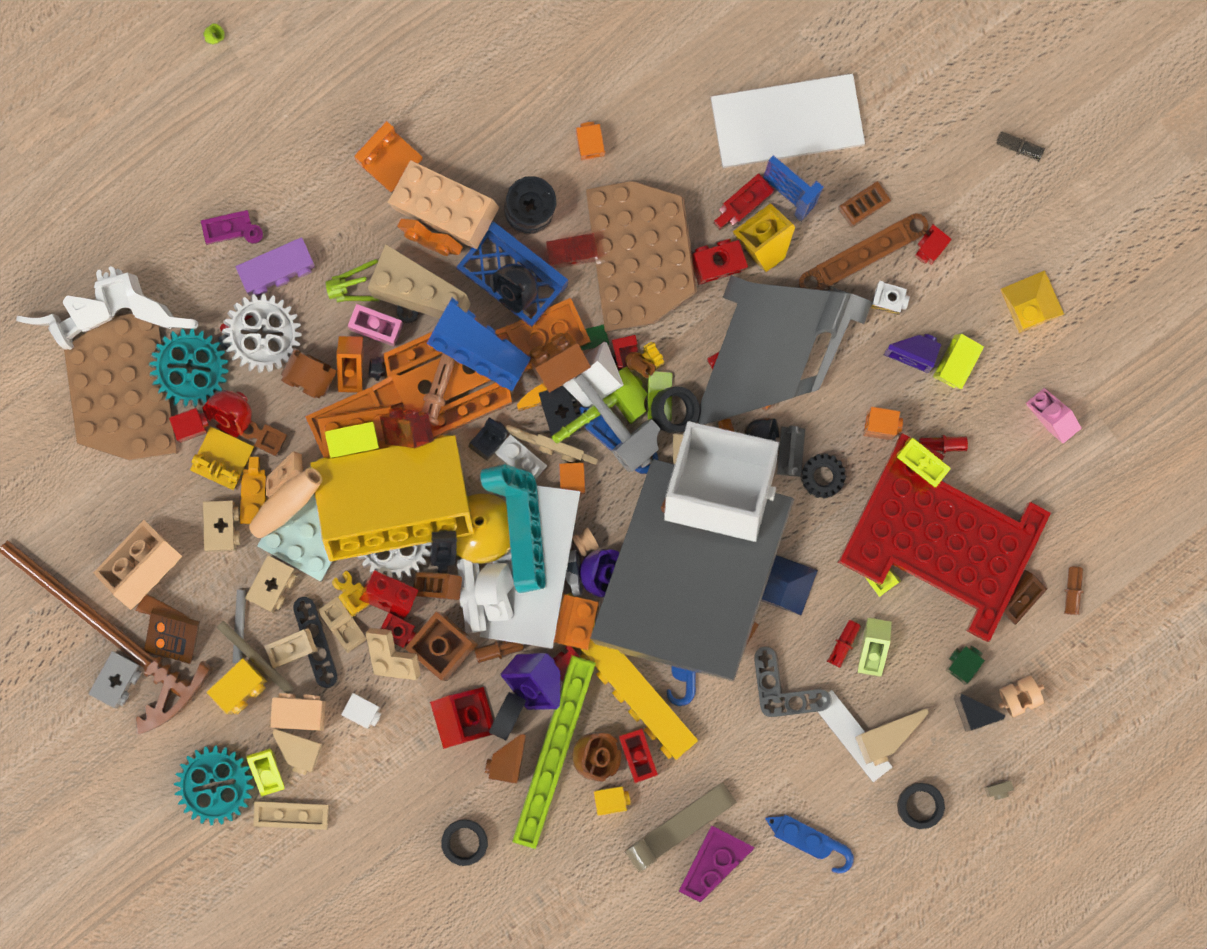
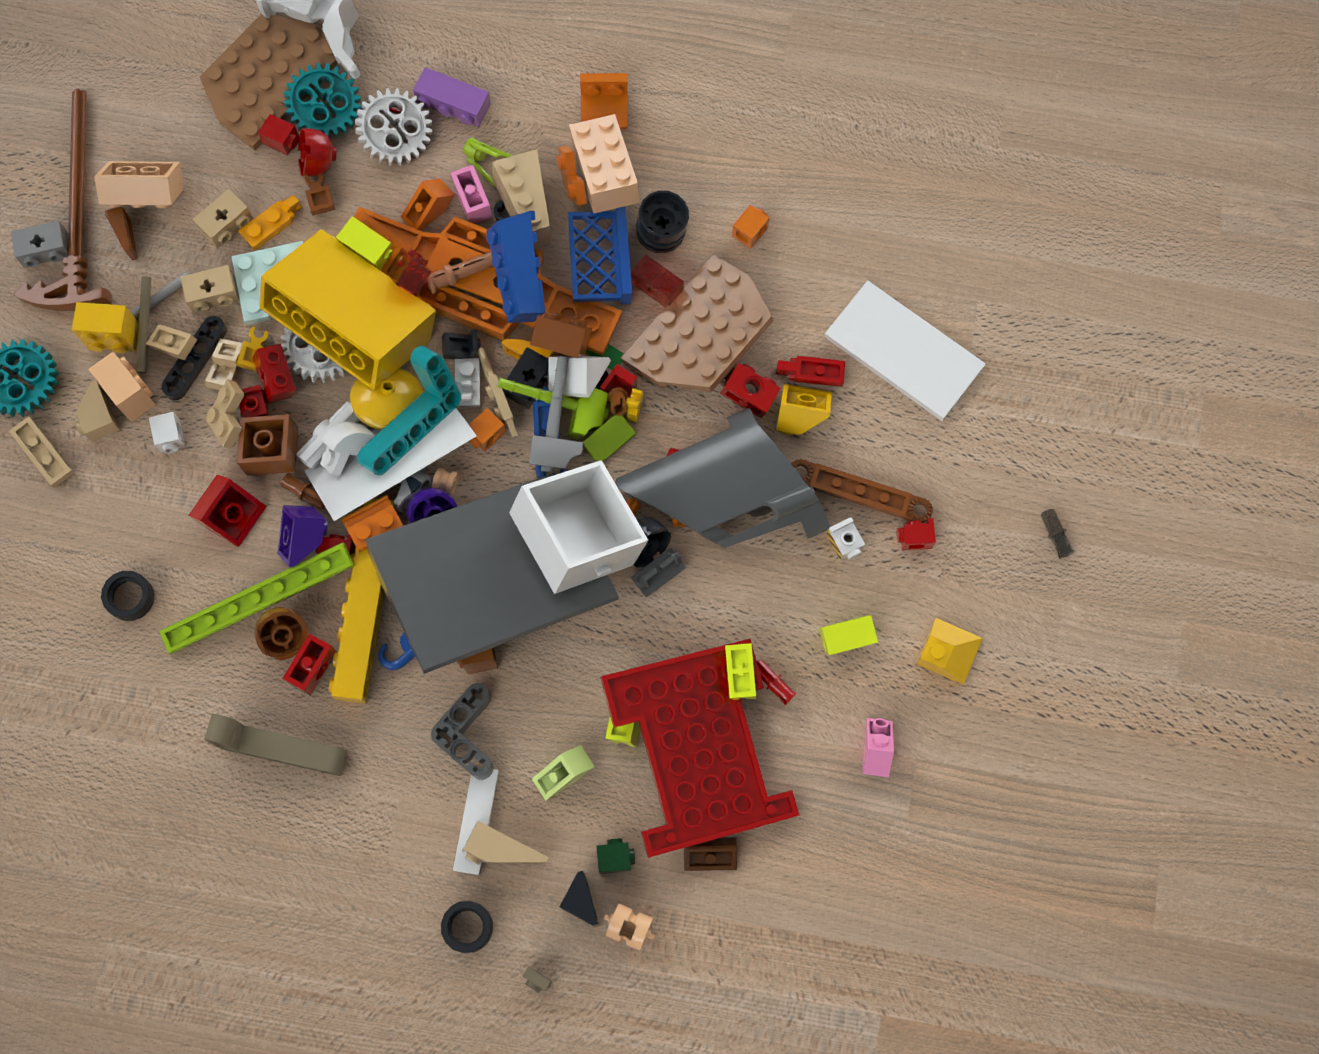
camera: 50 degrees right, 10 degrees down
(171, 636) = (107, 252): reddish brown tile -> none
(221, 458) = (276, 179): yellow hinge -> none
(231, 227) = (452, 46): magenta hinge -> none
(265, 772) = (58, 403): neon yellow slope -> none
(288, 492) = (278, 236): light nougat plate -> none
(308, 373) = (391, 180): dark orange brick -> none
(376, 368) = (439, 223): black plate -> none
(443, 550) = (340, 378): black hinge -> none
(450, 587) = (313, 404): dark orange slope -> none
(507, 716) = (254, 538): black tyre -> none
(507, 761) = (221, 571): dark orange slope -> none
(516, 286) = (591, 259): black cylinder -> none
(611, 800) = (256, 677): yellow brick -> none
(658, 412) = (627, 453): black tyre -> none
(713, 862) = (275, 801): magenta wing -> none
(789, 585) = (550, 660): dark blue slope -> none
(792, 187) = (859, 393): blue fence -> none
(809, 840) = (360, 862): blue plate -> none
(812, 486) = (659, 597): black tyre -> none
(844, 643) = (544, 747): red axle -> none
(850, 217) = (890, 447): dark orange slope -> none
(882, 423) = (743, 617): orange brick -> none
(916, 352) = (823, 593): dark purple slope -> none
(1073, 590) = (754, 892): dark orange axle -> none

